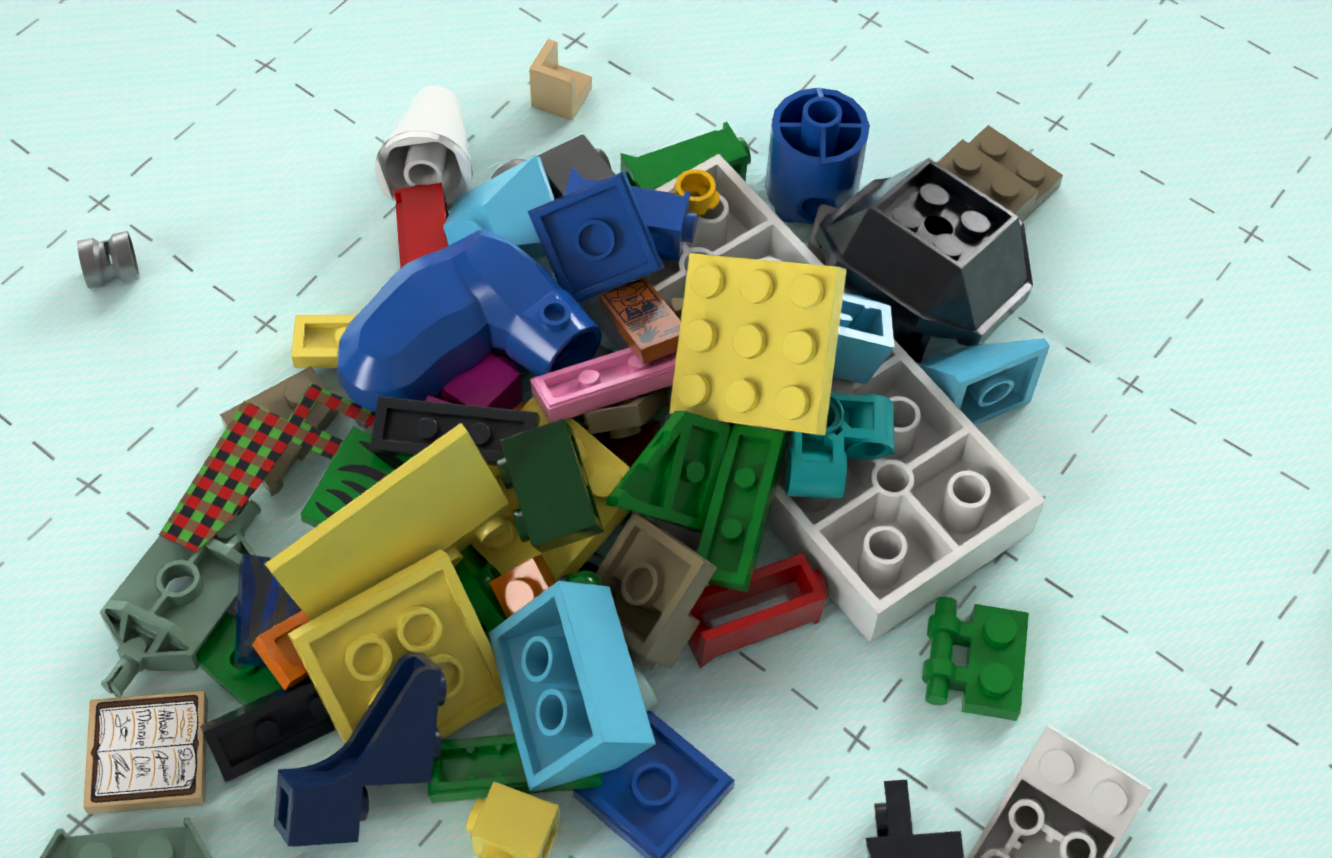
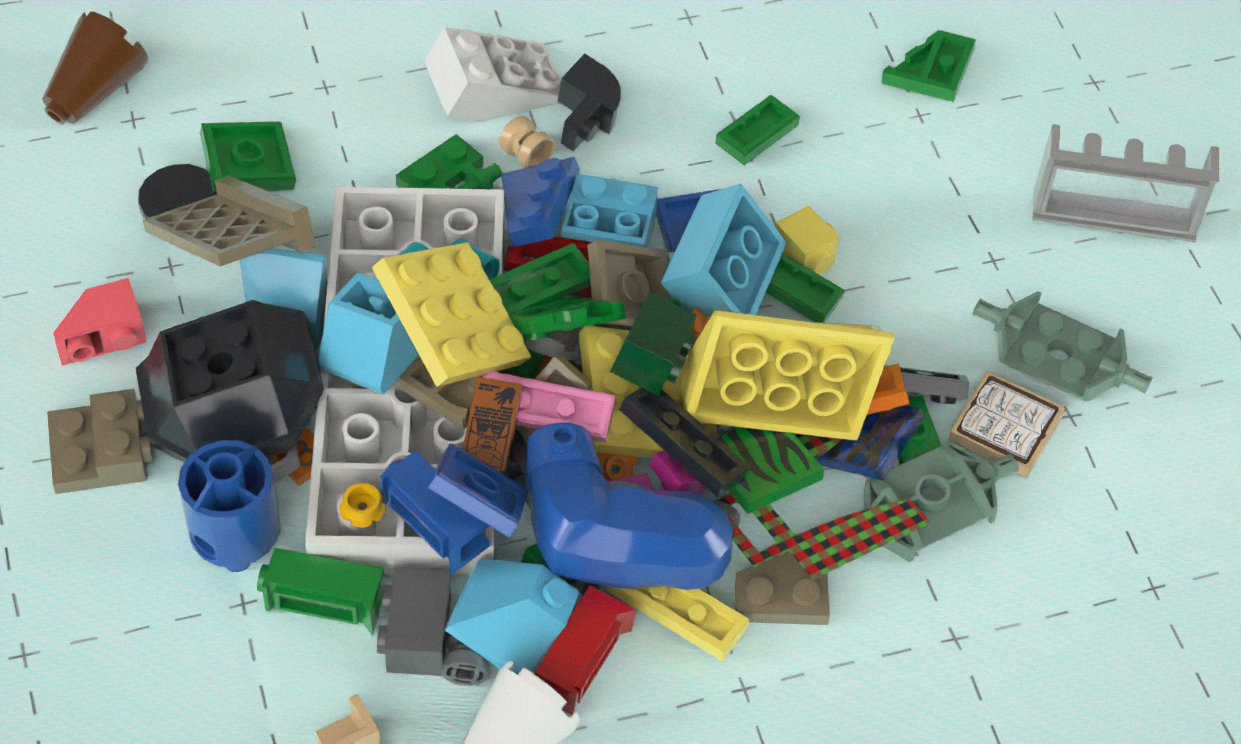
camera: 145 degrees left, 5 degrees down
(389, 746) = (878, 305): dark blue arch -> none
(747, 686) = (610, 211): none -> medium azure slope
(840, 644) = (537, 199): none -> blue wing
(946, 749) = (523, 140): none -> tan wheel
(1082, 417) = (235, 223): none -> dark tan fence
(1111, 273) = (100, 323): none -> coral slope
(1191, 531) = (249, 153): none -> green tile
(1199, 447) = (173, 188): none -> black tile

